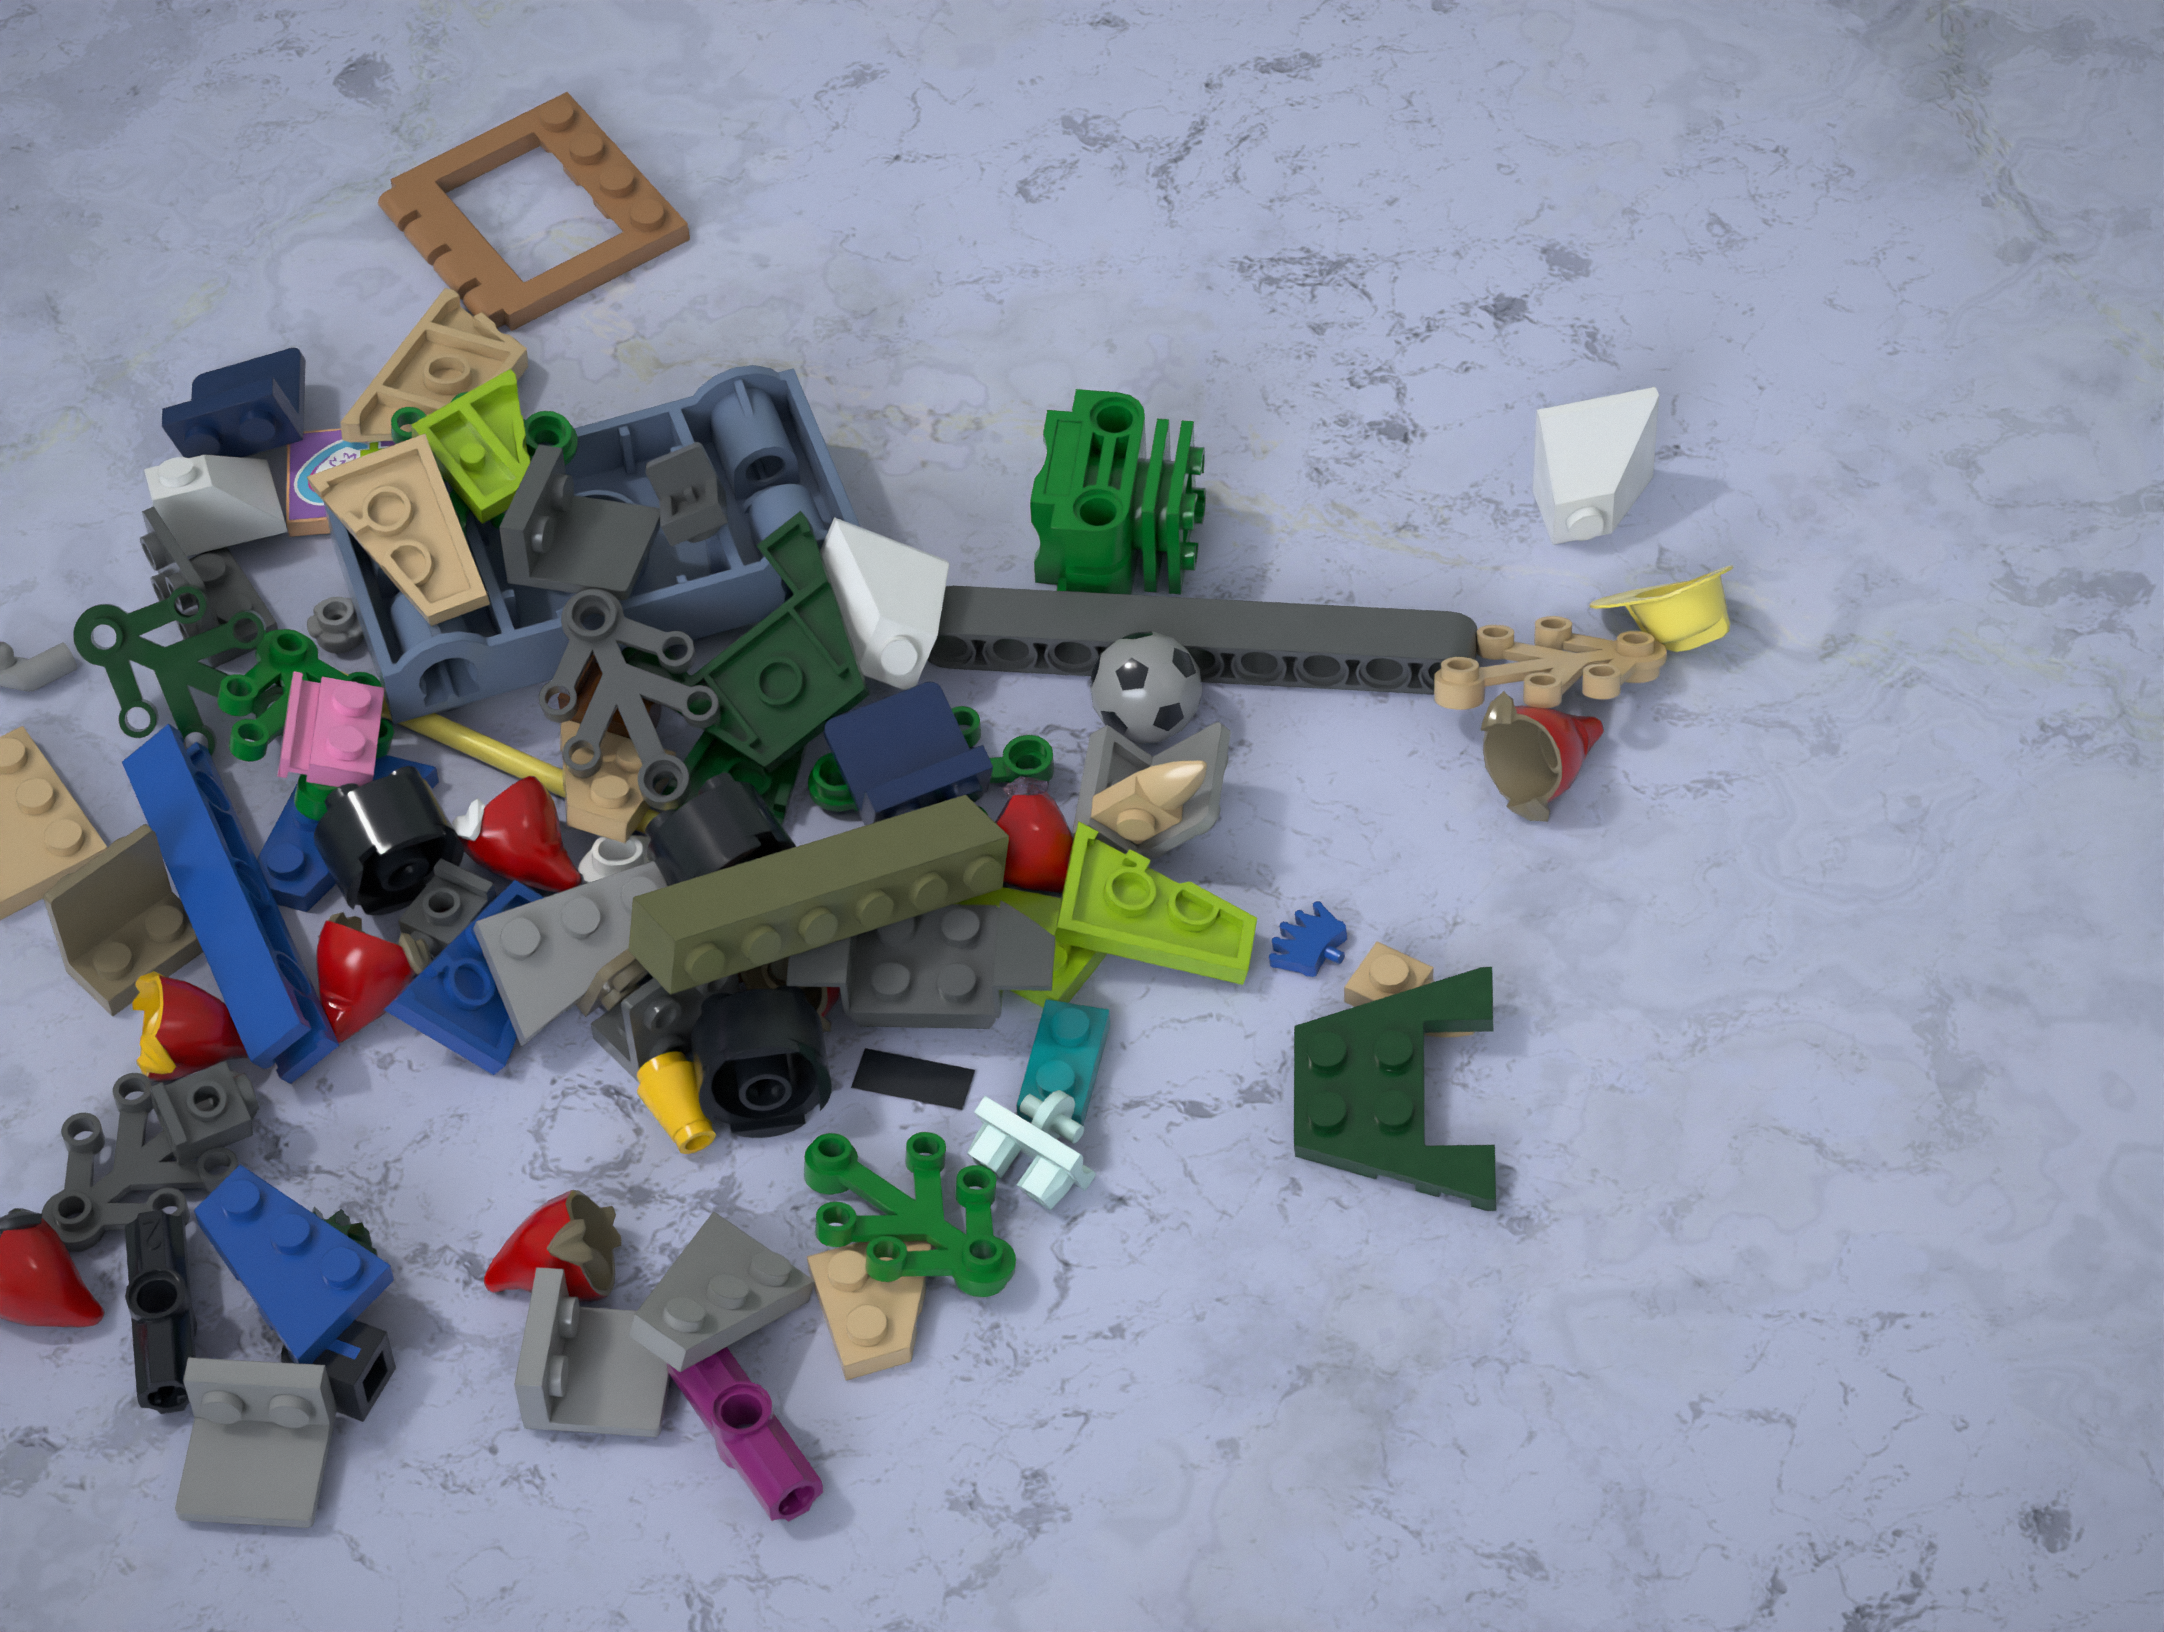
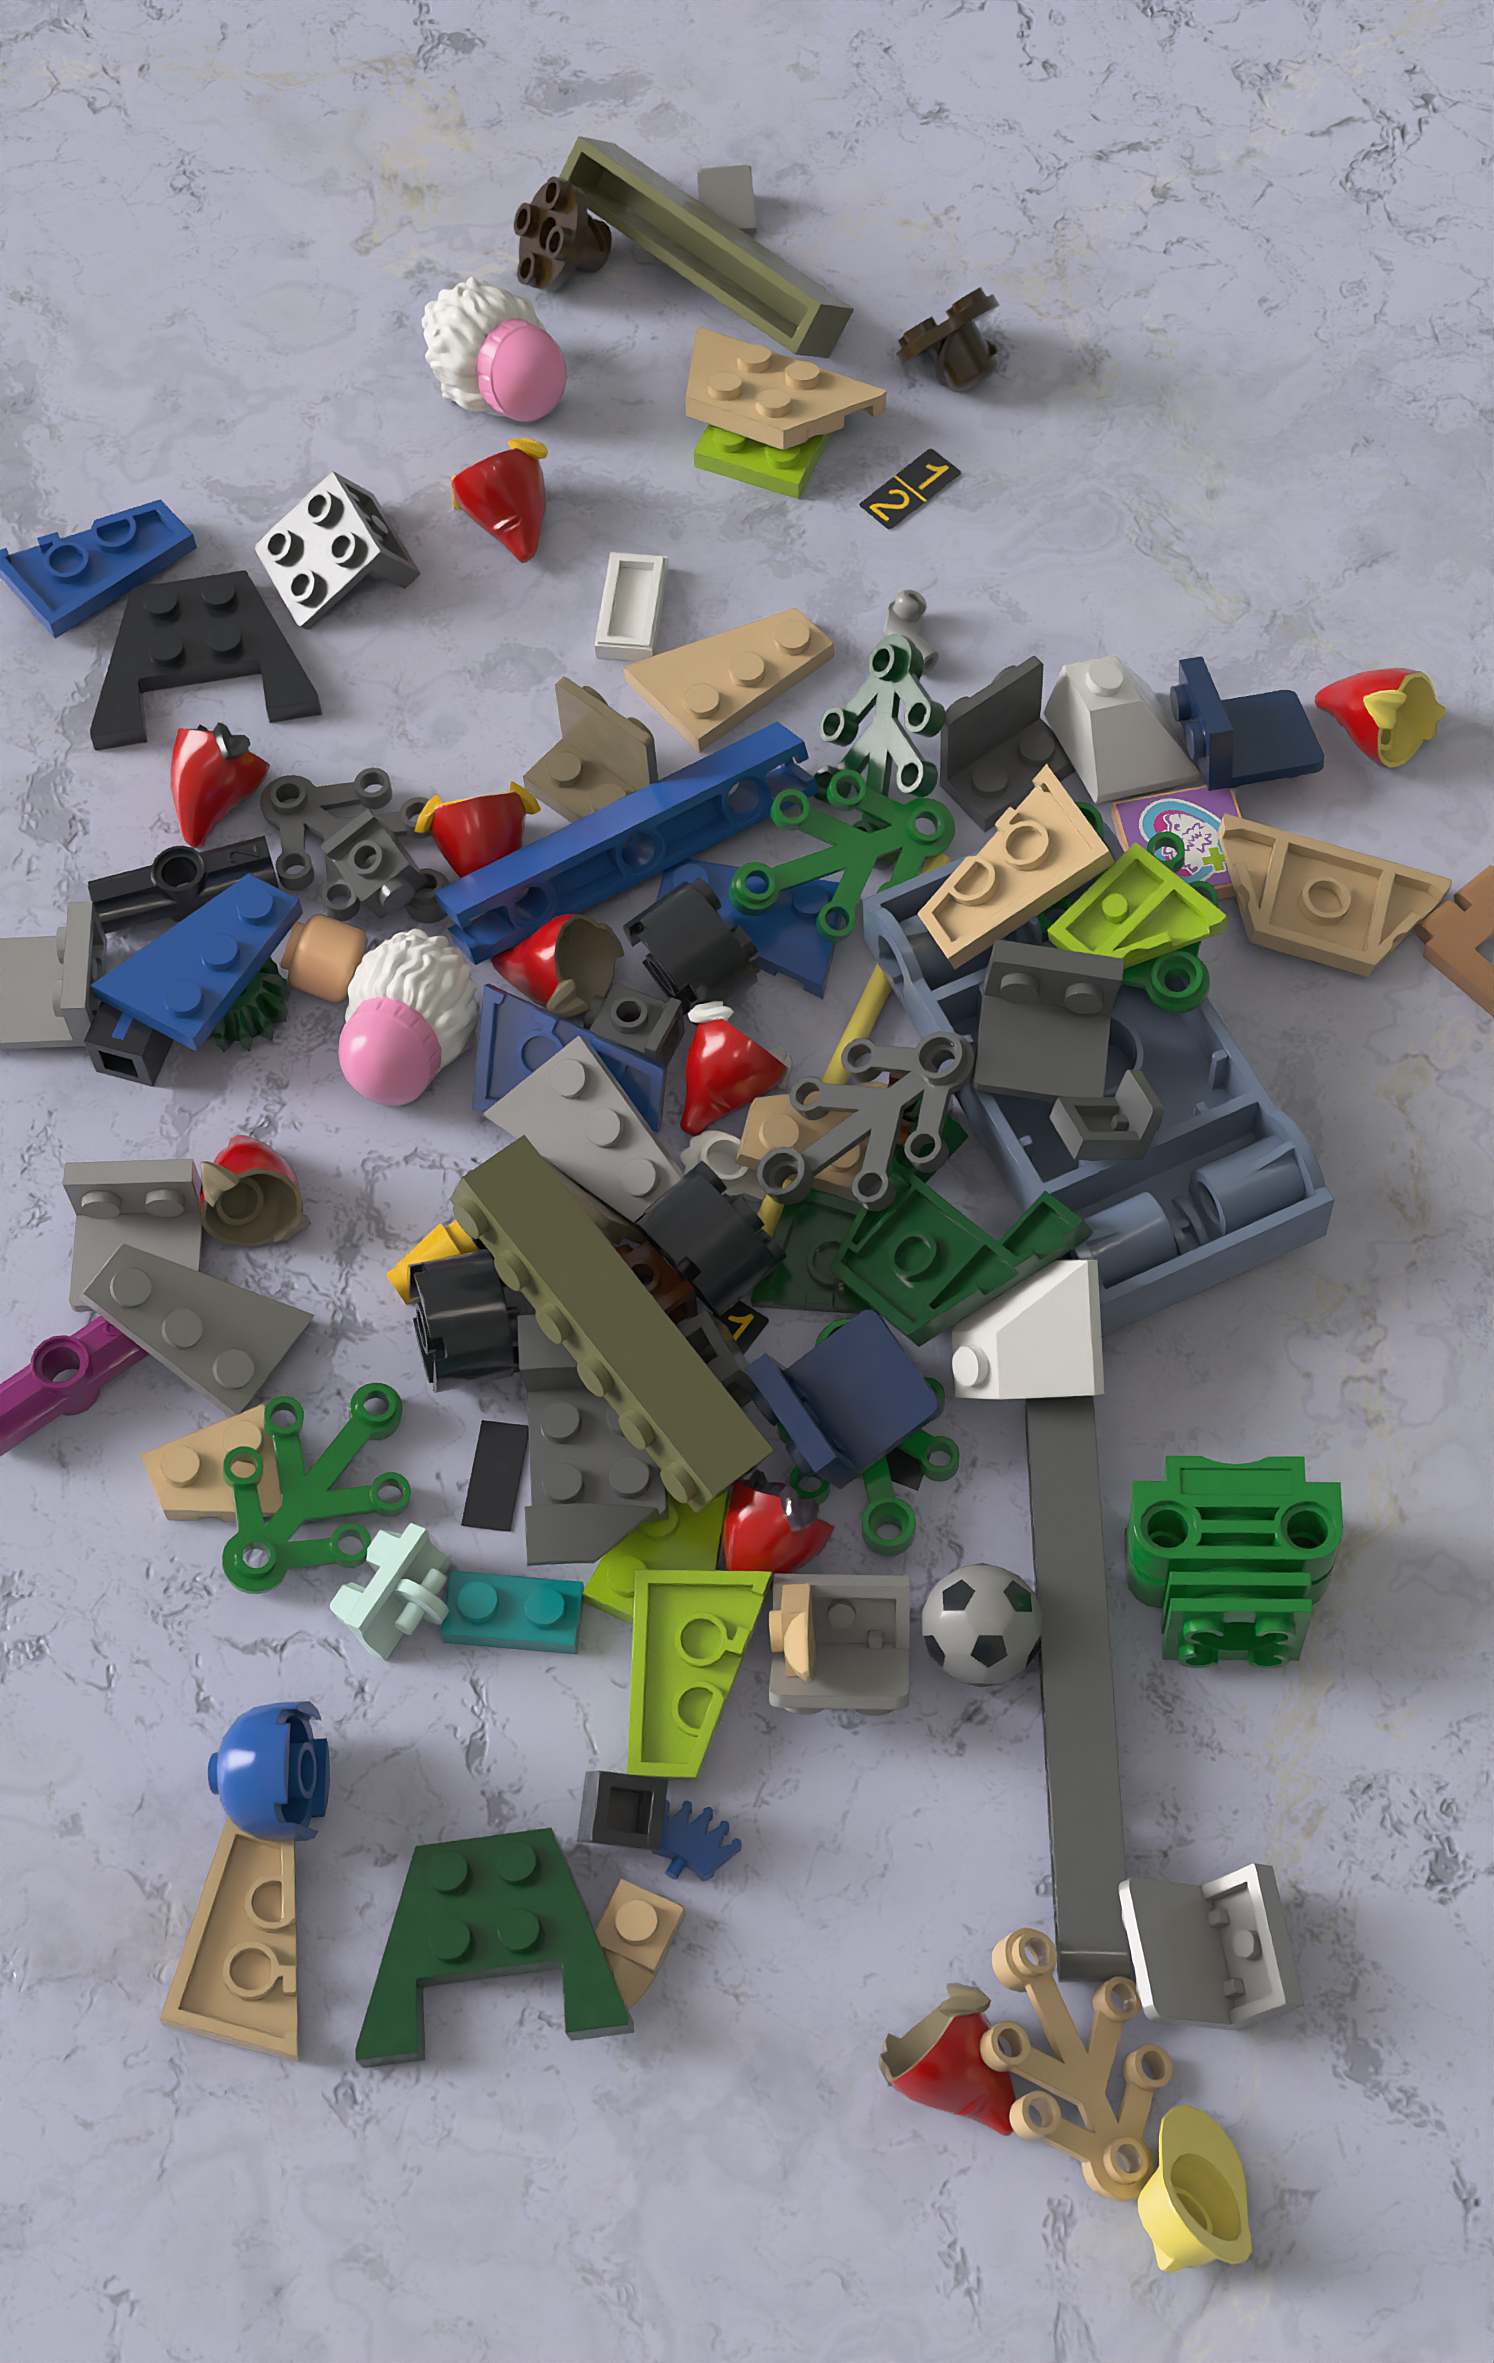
camera: 85 degrees right, 10 degrees up
(245, 309) = (1384, 712): none -> hat
(301, 1168) = (324, 957): none -> light nougat head
(331, 731) = (807, 874): bright pink plate -> none
(396, 1096) = (407, 1017): none -> hair
(1215, 1234) = (273, 1772): none -> blue cylinder
(1288, 964) = (622, 1810): none -> black brick
(1386, 1293) = (241, 1950): none -> tan wing
(1460, 554) = (1211, 1950): none -> light grey bracket
(1593, 462) = (1377, 2090): white slope -> none

